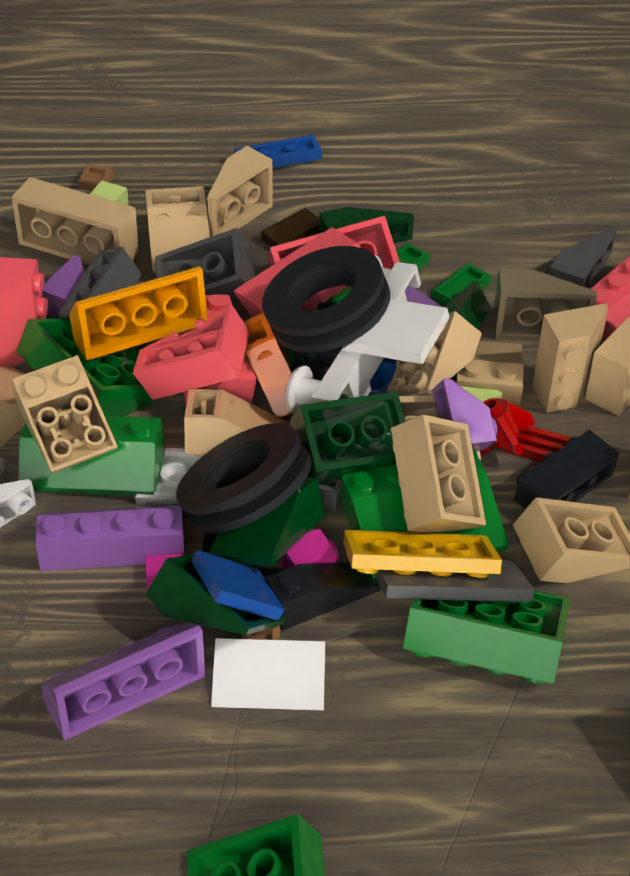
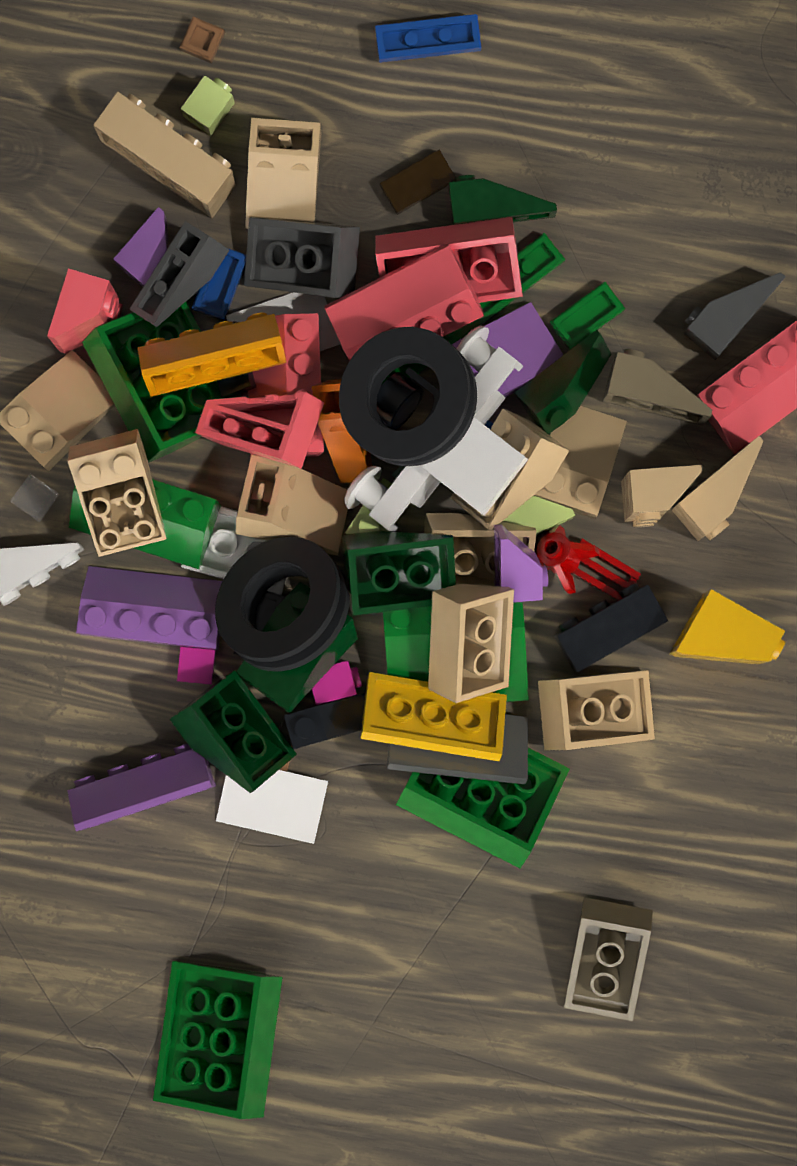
camera: 10 degrees right, 40 degrees up
(237, 585) = (253, 731): blue tile -> none
(240, 191) = (367, 122): tan slope -> none

